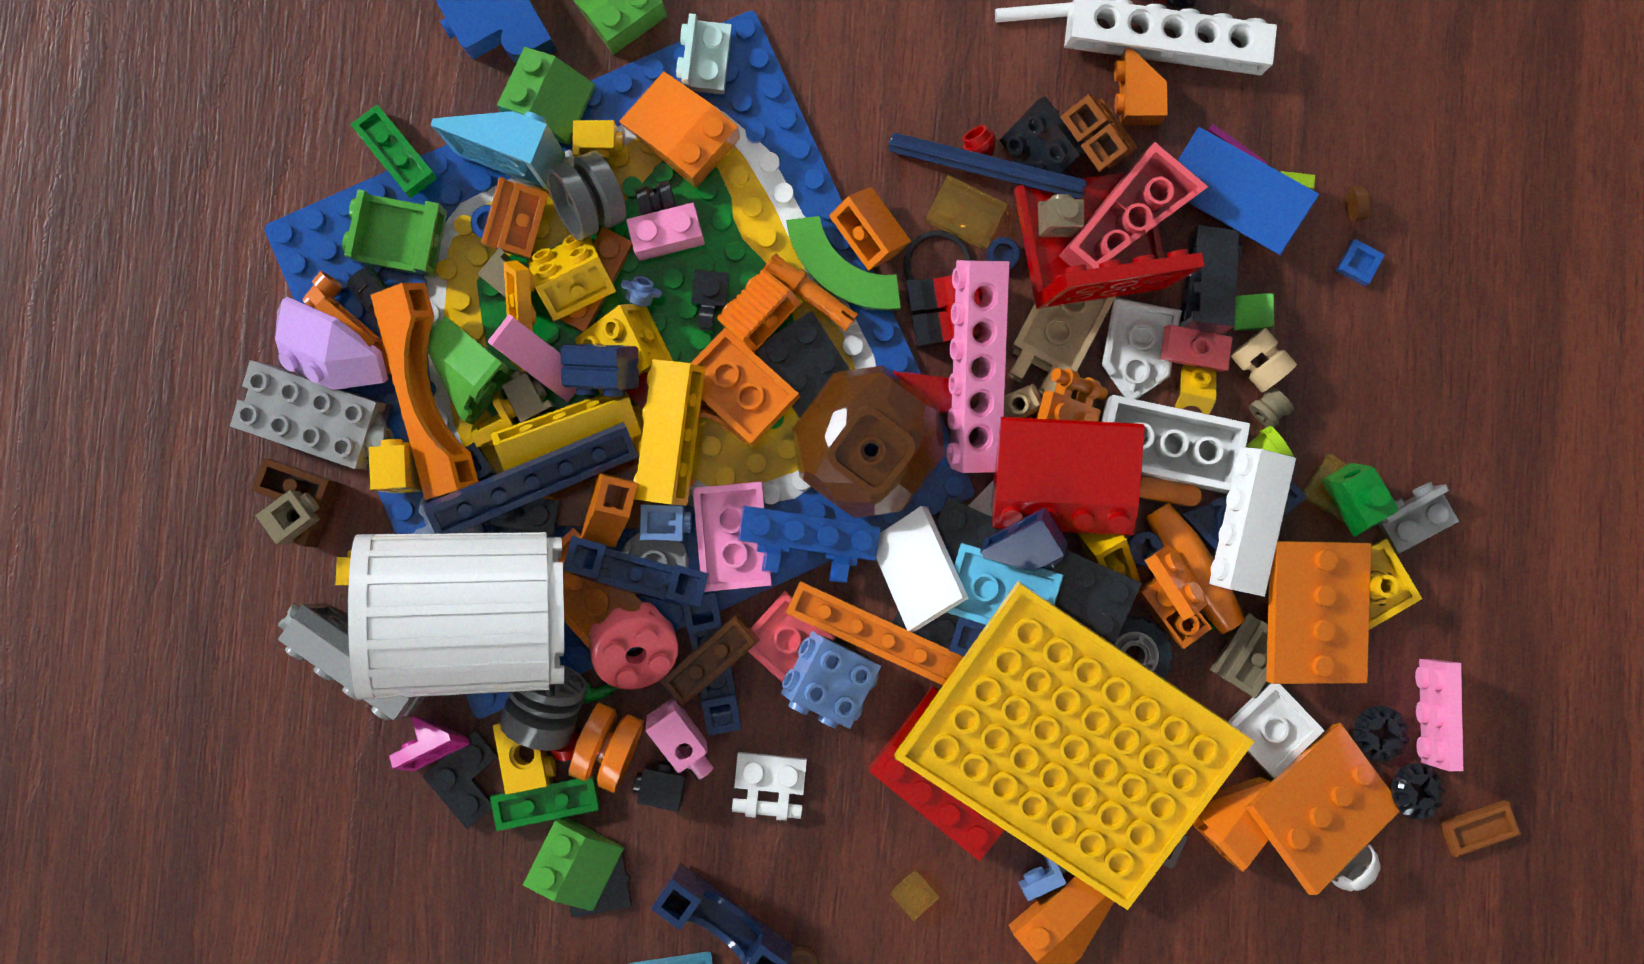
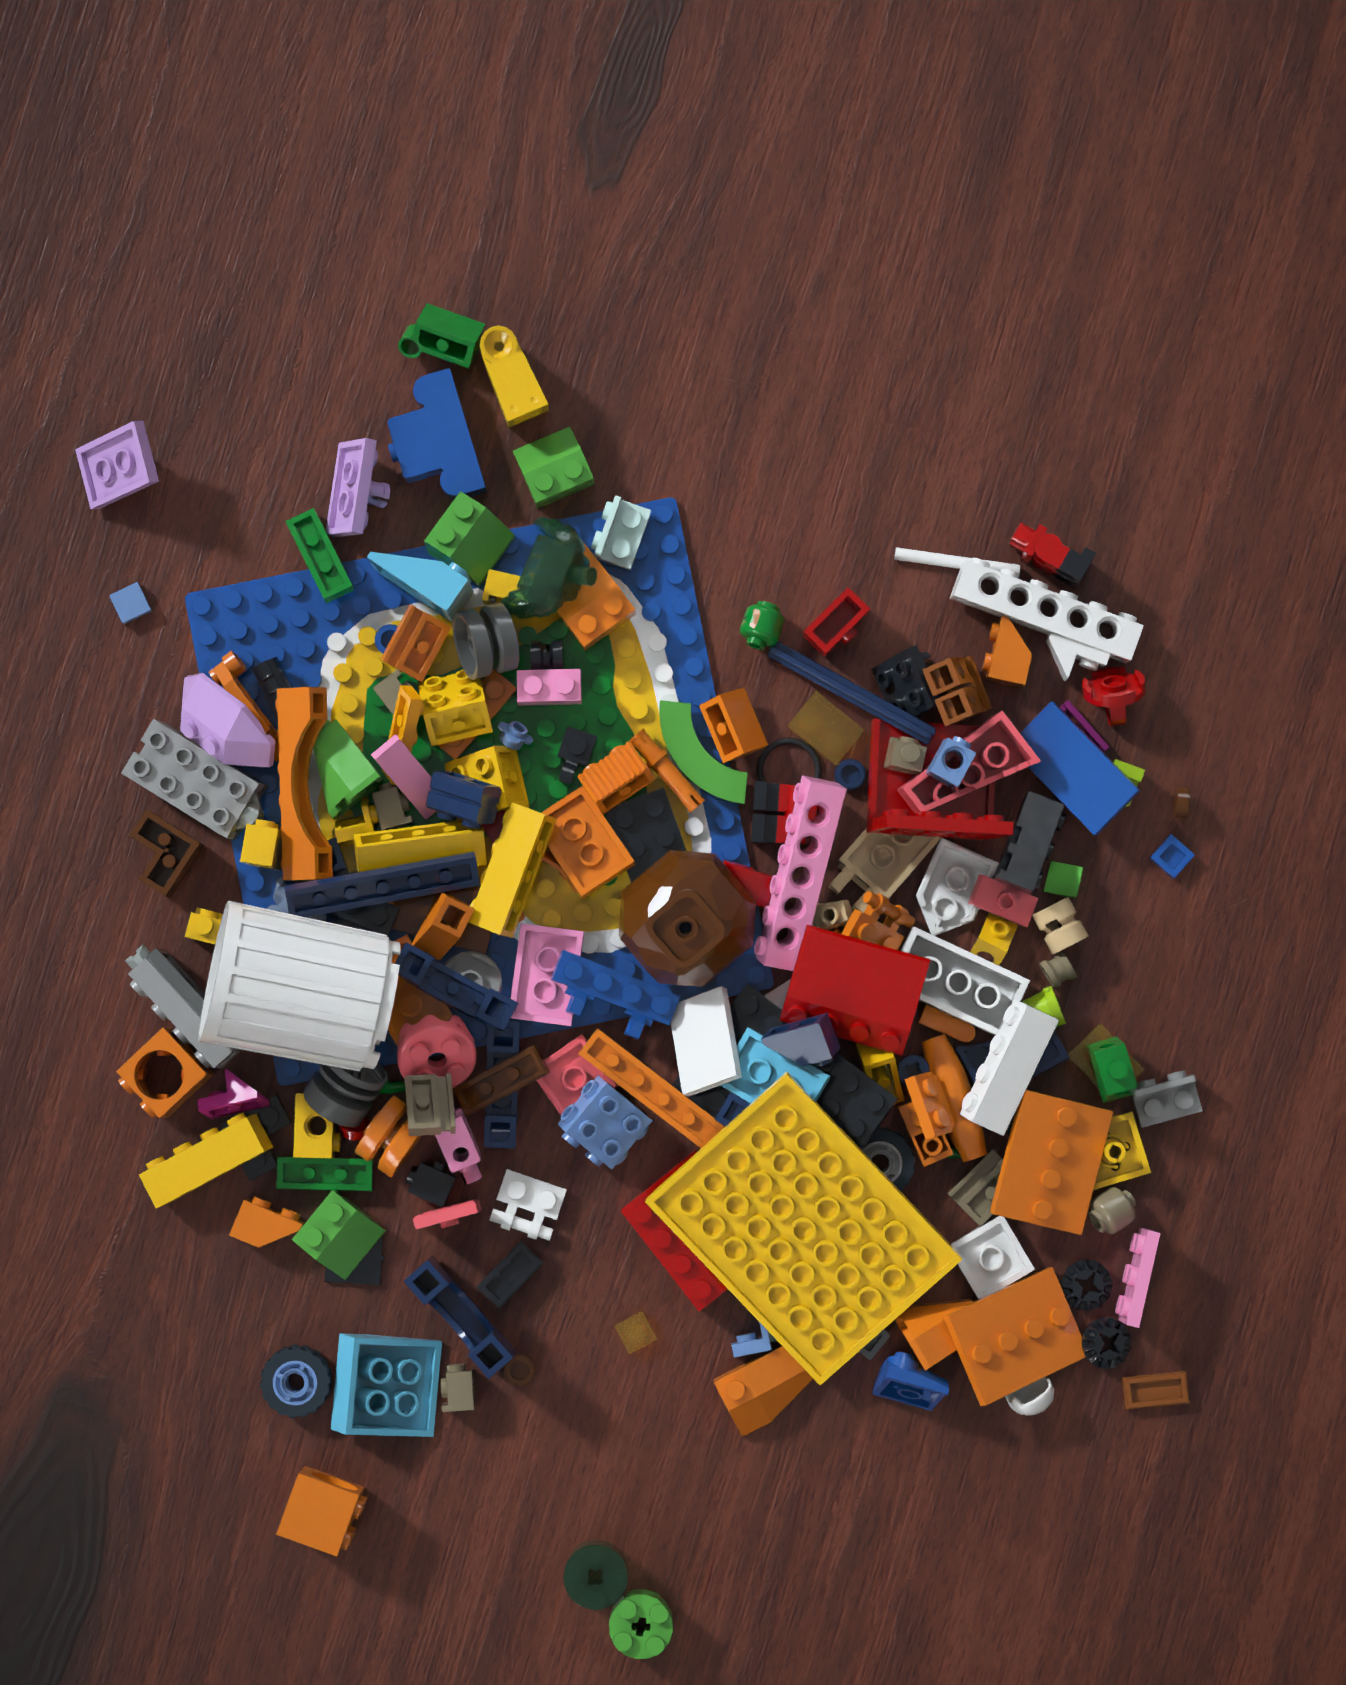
camera: 10 degrees right, 0 degrees up
(156, 101) = (117, 465): none -> lavender plate
(208, 248) = (130, 603): none -> medium blue tile
(277, 516) = (150, 867): dark tan brick -> none
(315, 747) = (193, 1074): none -> orange brick
(394, 234) = (304, 631): bright green panel -> none
(412, 819) = (205, 1160): none -> yellow brick
(414, 72) = (354, 488): none -> lavender plate
(489, 872) = (261, 1225): none -> orange slope
(637, 706) = (429, 1104): none -> dark tan plate
(639, 108) = (552, 572): none -> clear green torso
(664, 522) = (489, 948): medium blue bracket -> none
(685, 819) = (447, 1215): none -> coral plate
(767, 865) = (510, 1274): none -> black plate
(875, 118) = (762, 625): none -> green head
(953, 96) = (836, 622): none -> red brick
(980, 140) = (852, 667): red plate -> none
(1107, 217) = (938, 767): none -> medium blue brick
(1201, 72) = (1067, 650): none -> white slope
(1221, 884) = (908, 1383): none -> blue slope
(1261, 104) = (1114, 690): none -> red tile
(1391, 648) = (1112, 1210): none -> dark tan head

